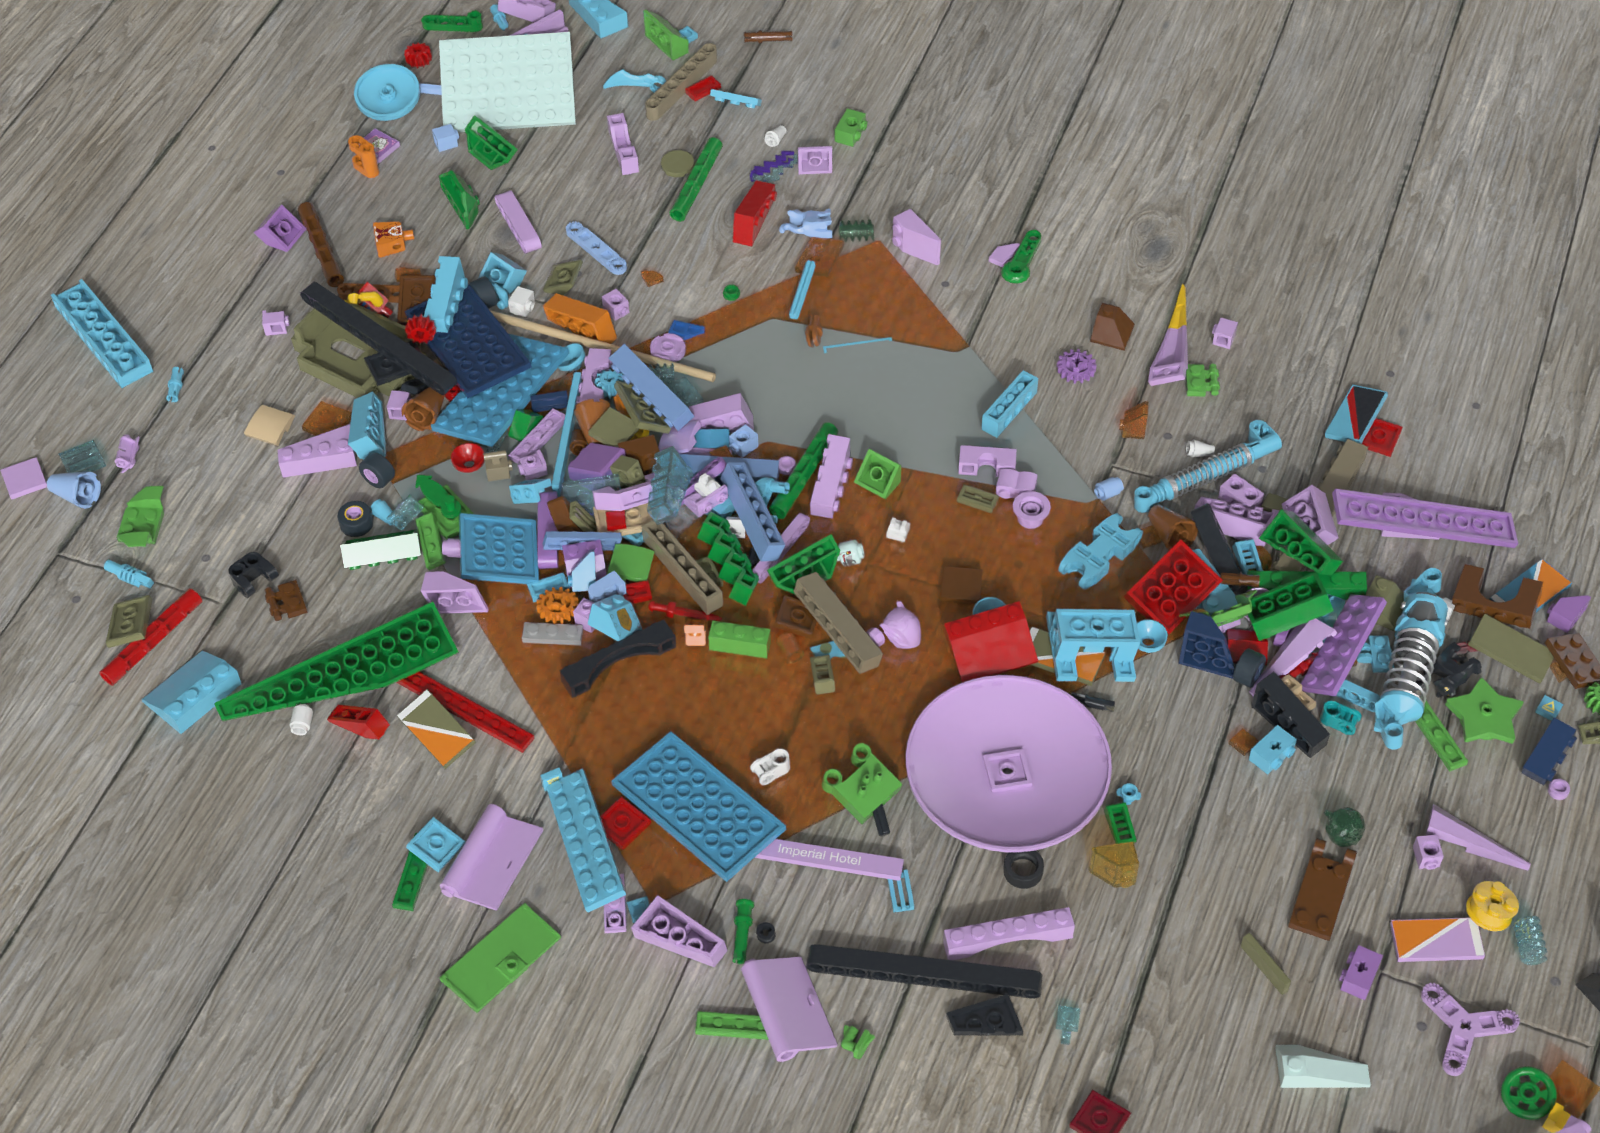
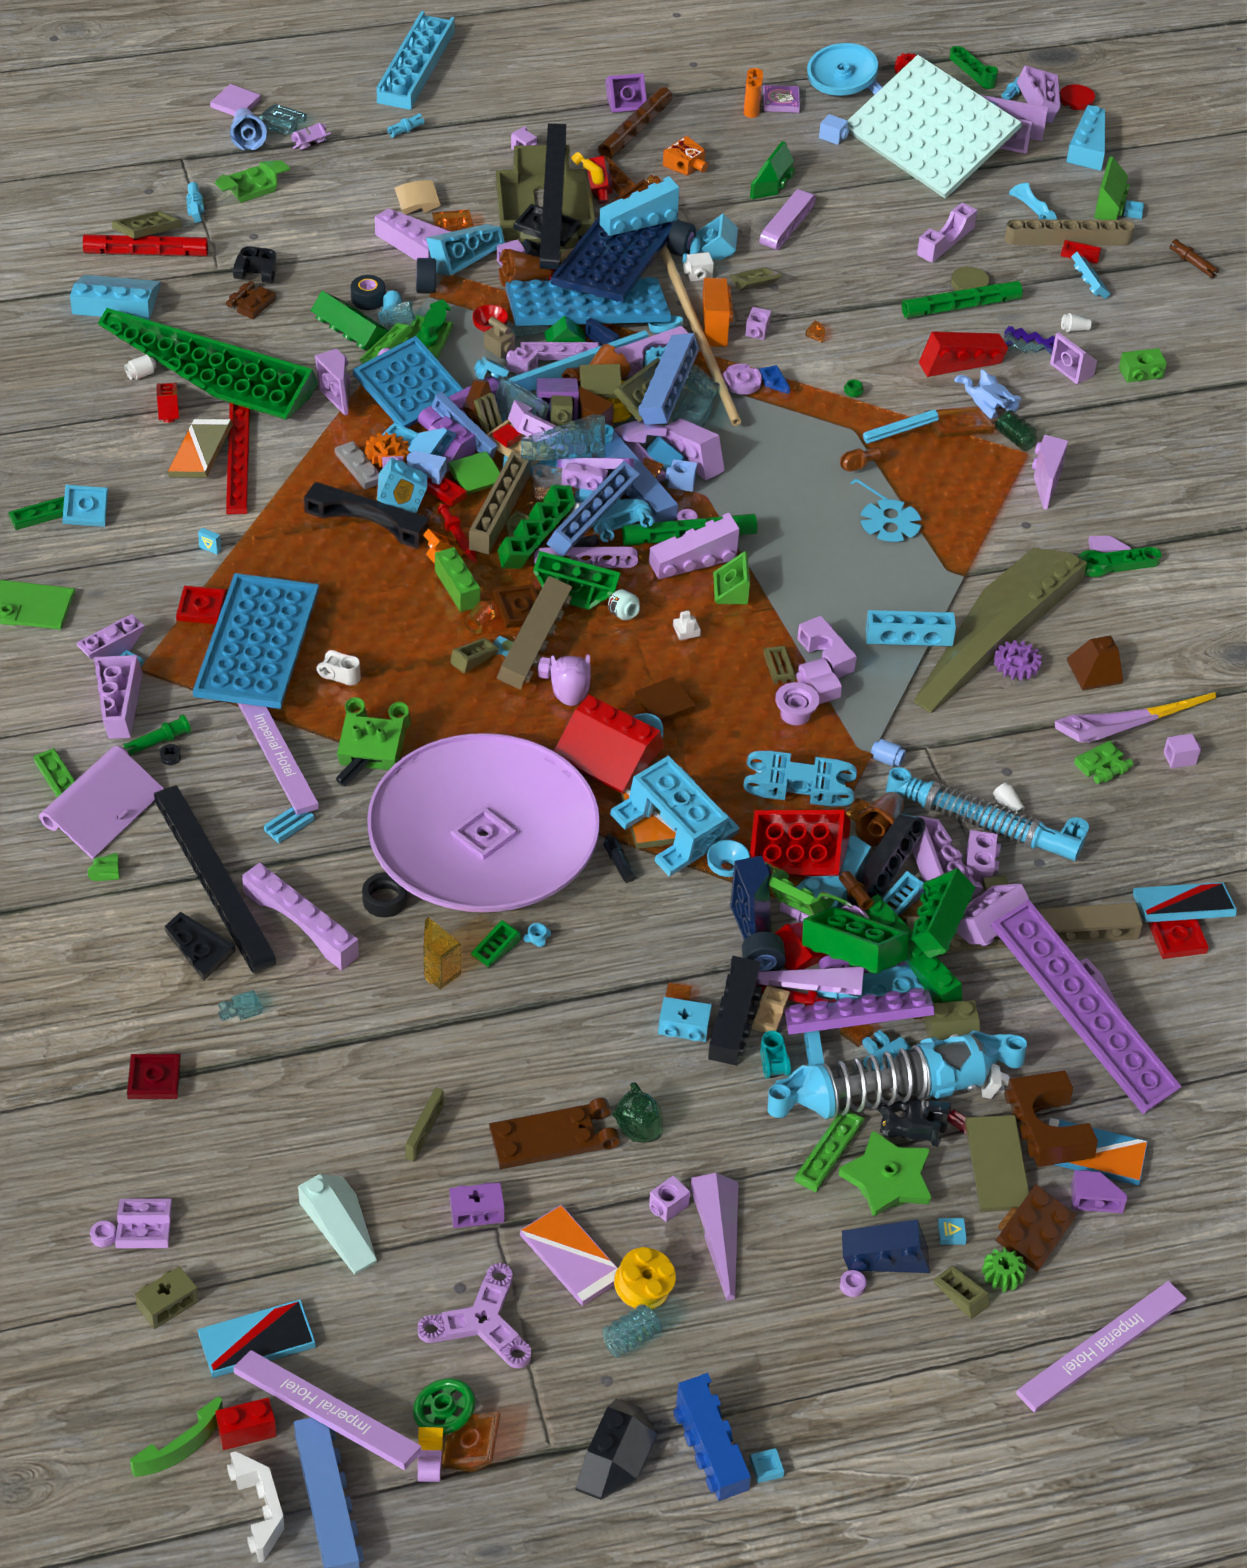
camera: 50 degrees right, 5 degrees down
(420, 329) = (588, 213): red gear -> none
(488, 144) = (855, 156): green wedge -> none
(490, 858) = (100, 544): lavender door -> none
(585, 840) = (159, 586): medium azure plate -> none
(603, 254) = (809, 289): light blue piece -> none
(706, 485) = (591, 462): white tile -> none
(881, 363) = (878, 520): none -> medium azure piece
(1023, 344) = (1002, 615): none -> olive wedge
(1135, 421) = (989, 734): clear orange slope -> none

